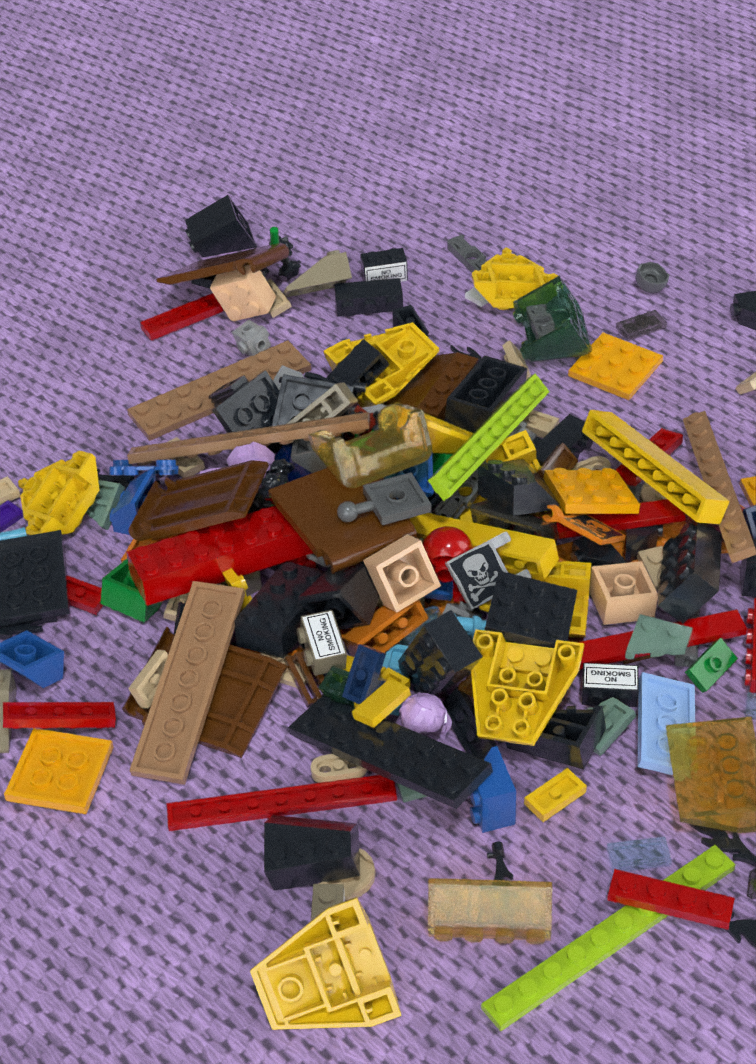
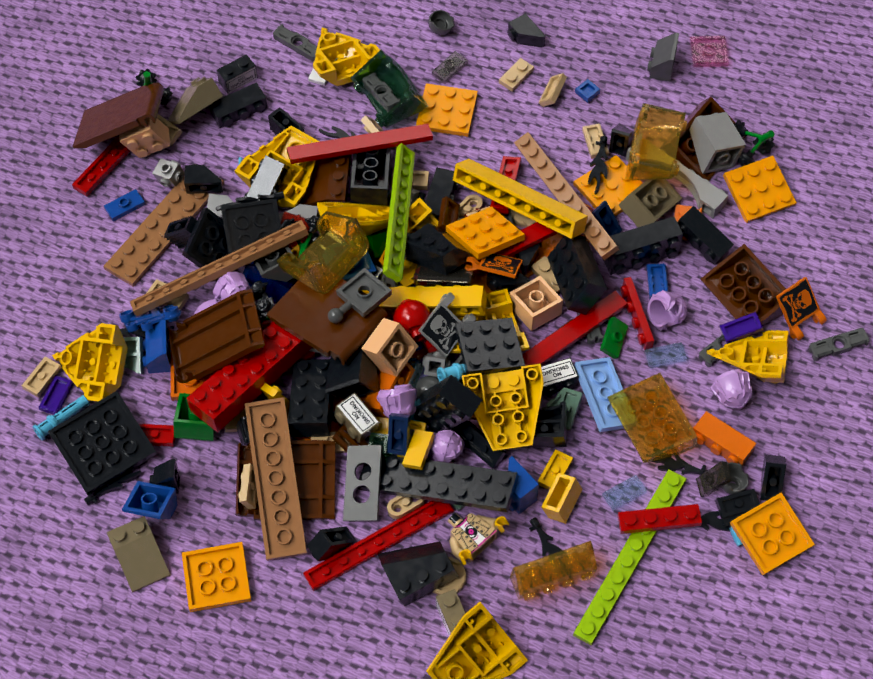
camera: 25 degrees left, 15 degrees up
(58, 715) = (195, 536): red plate -> none
(68, 637) = (167, 475): none -> black slope
(186, 359) = (124, 205): none -> blue plate
(218, 777) = (330, 542): none -> black slope
(219, 229) = (89, 77): black slope -> none
(280, 350) = (201, 180): none -> black slope
(286, 758) = (370, 509): none -> piece
(330, 404) = (266, 223): dark tan slope -> none
(385, 635) = (398, 400): none -> lavender helmet
(406, 833) = (473, 534): none -> torso
(484, 361) = (359, 143): none -> tile
(546, 827) = (561, 498): none -> yellow brick
(658, 638) = (574, 332): sand green wing -> none
(721, 352) = (516, 74): none -> tan plate

